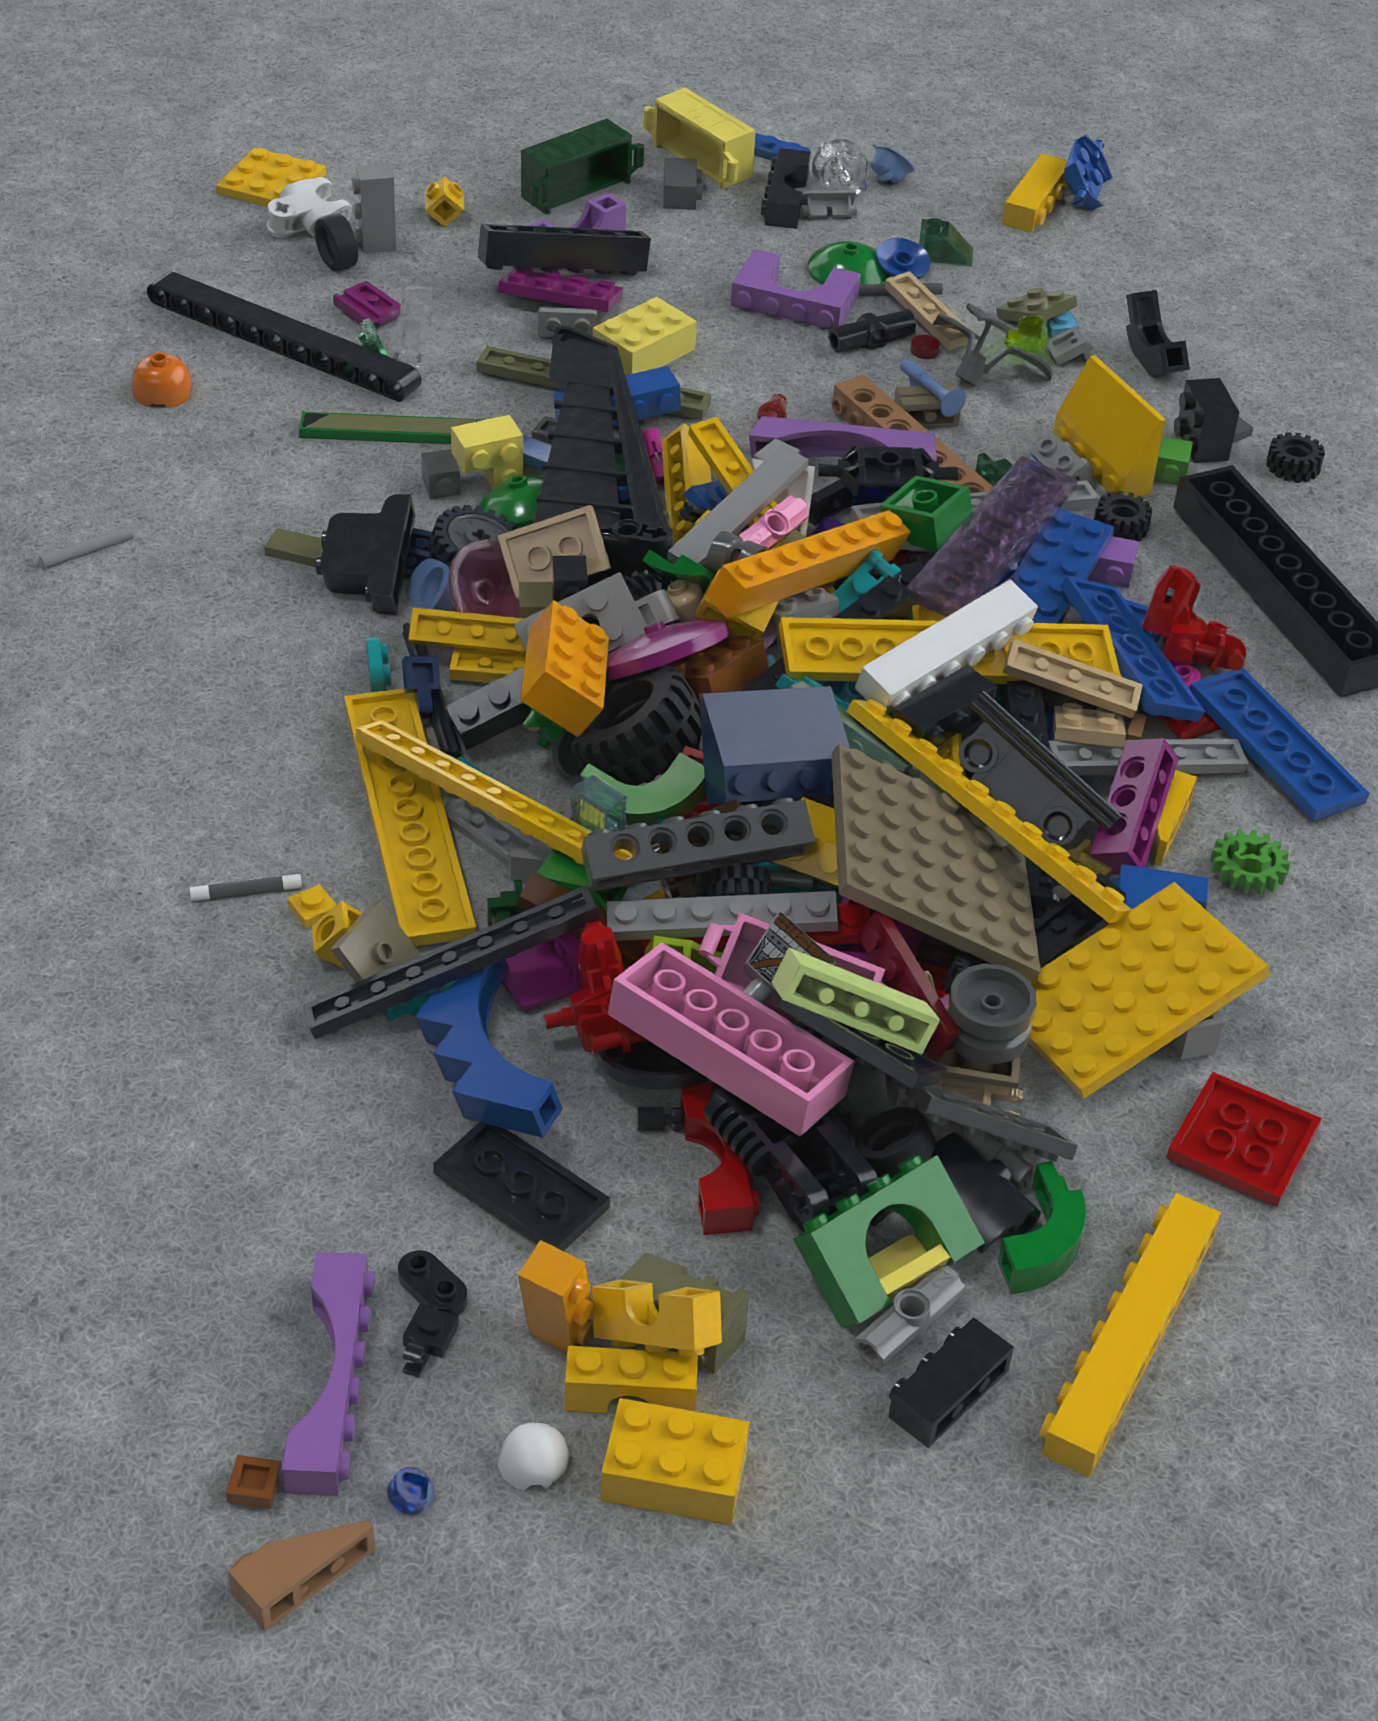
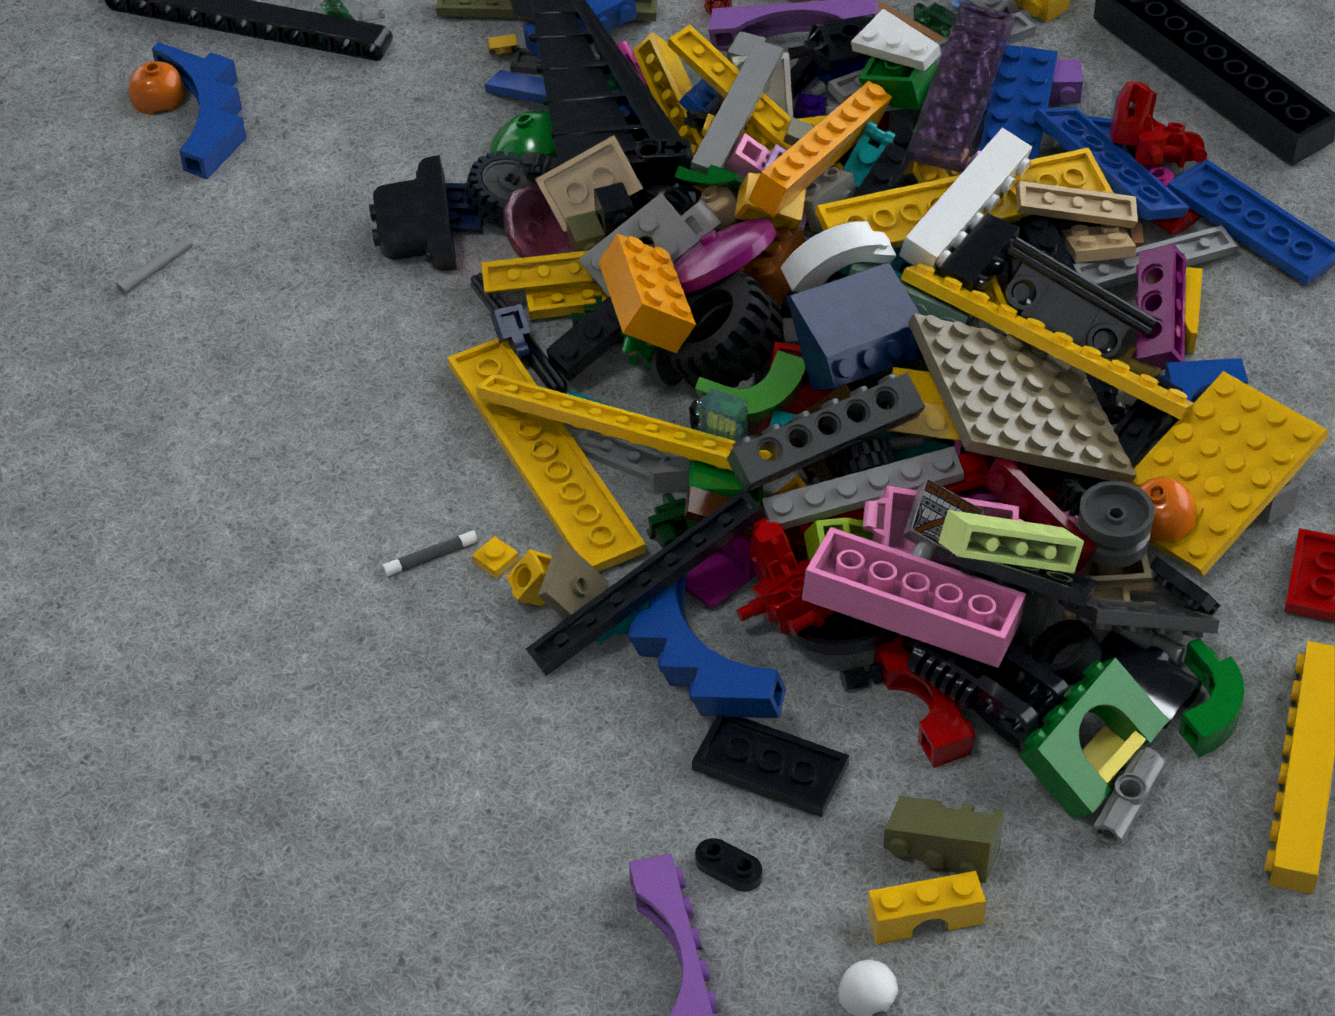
camera: 10 degrees left, 5 degrees up
(208, 424) = (218, 126): none -> blue arch
(294, 547) = (345, 224): olive tile -> none
(377, 655) = (460, 316): teal plate -> none
(379, 427) = (383, 89): tile -> none
(427, 1335) = (742, 909): black plate -> none
(430, 586) = (483, 237): medium blue piece -> none
(440, 473) = (446, 125): dark grey brick -> none
(489, 446) = (487, 93): light yellow brick -> none
(508, 521) = (538, 164): none -> black plate
(530, 409) = (502, 44): none -> yellow plate
(556, 1297) = (849, 853): light orange brick -> none
(674, 1461) = (986, 964): yellow brick -> none
(685, 1321) = (908, 854): yellow arch -> none
(730, 548) = (749, 151): dark grey wheel -> none
(777, 522) = (772, 123): bright pink piece -> none
(782, 663) = (832, 250): none -> white arch
(930, 476) = (896, 42): none -> white wing
(949, 1381) = (1178, 843): black brick -> none
(1061, 1015) = (1173, 509): none -> orange cylinder
(1062, 1113) = (1191, 593): none -> black plate
(1127, 514) = (1067, 31): black tyre -> none
(1250, 861) = (1268, 334): bright green gear -> none

